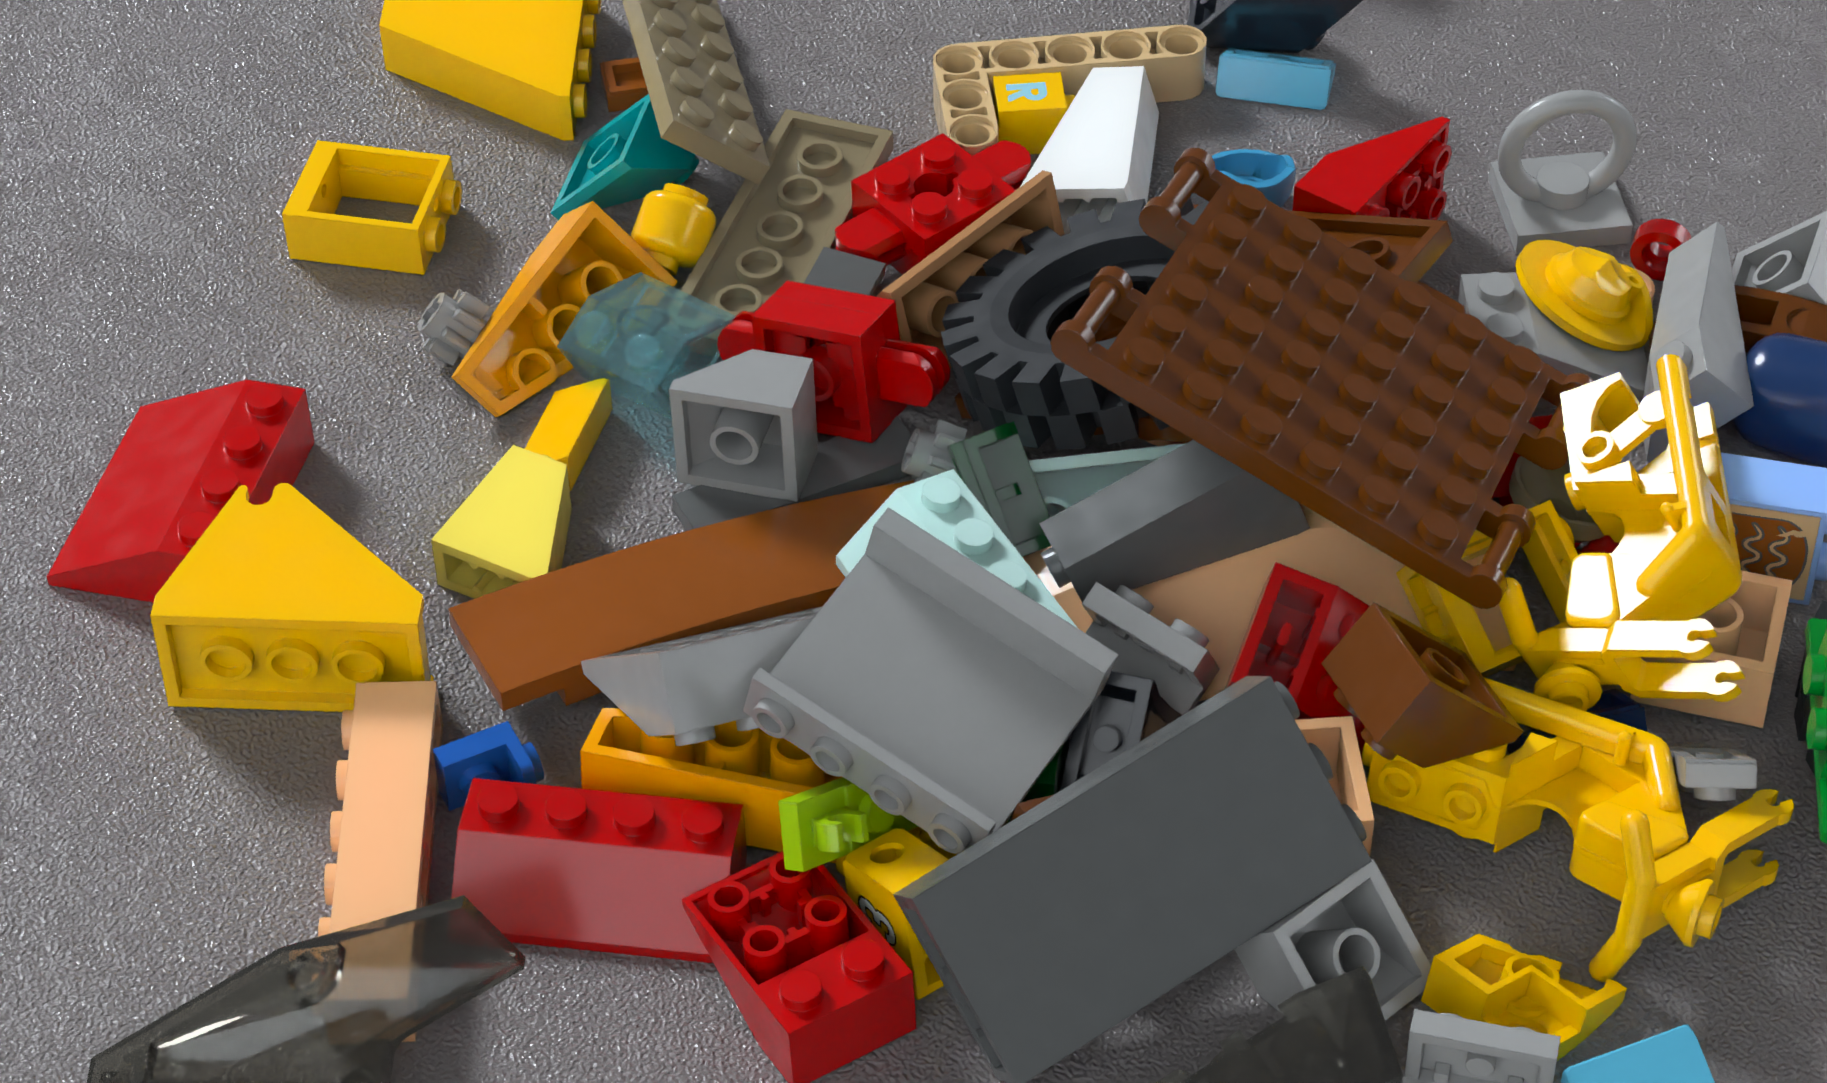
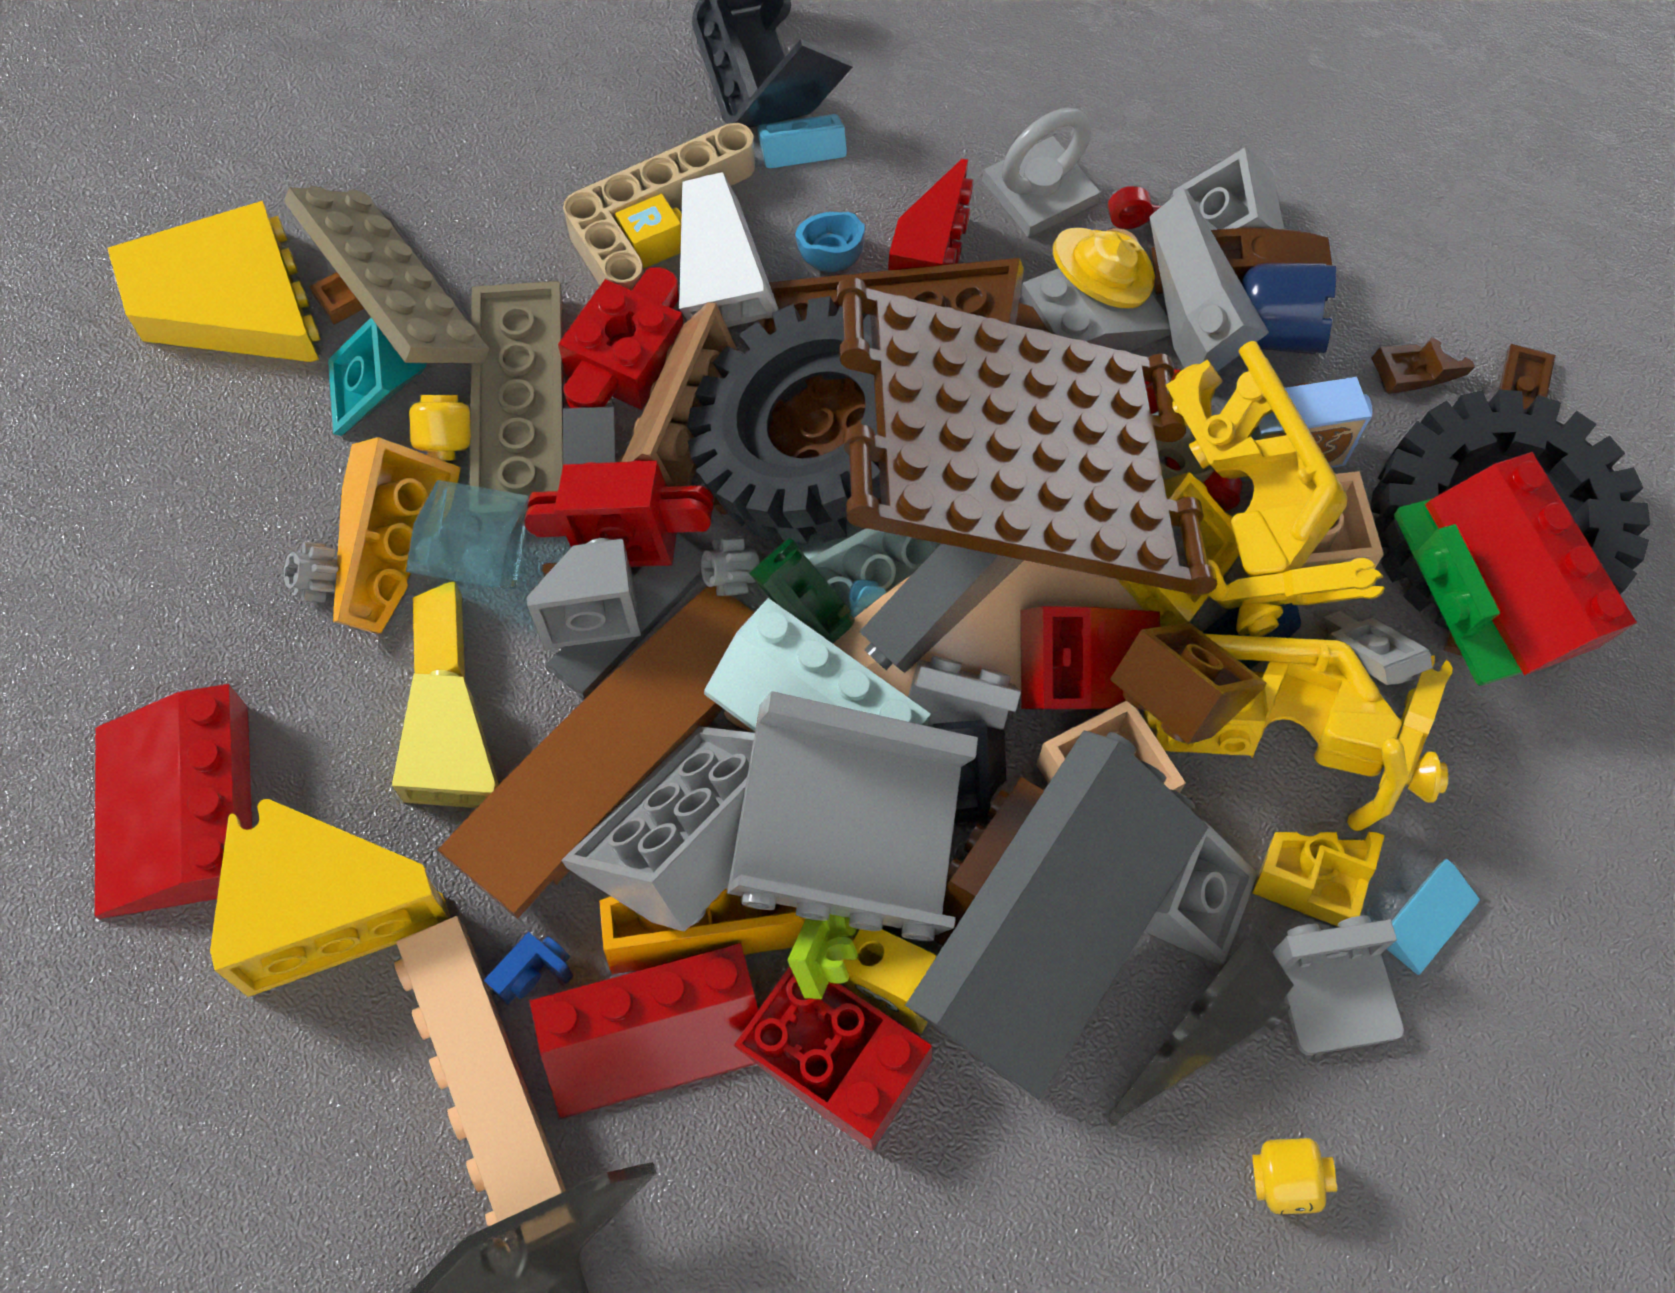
camera: 25 degrees left, 20 degrees up
(378, 175) = (155, 454): yellow window -> none

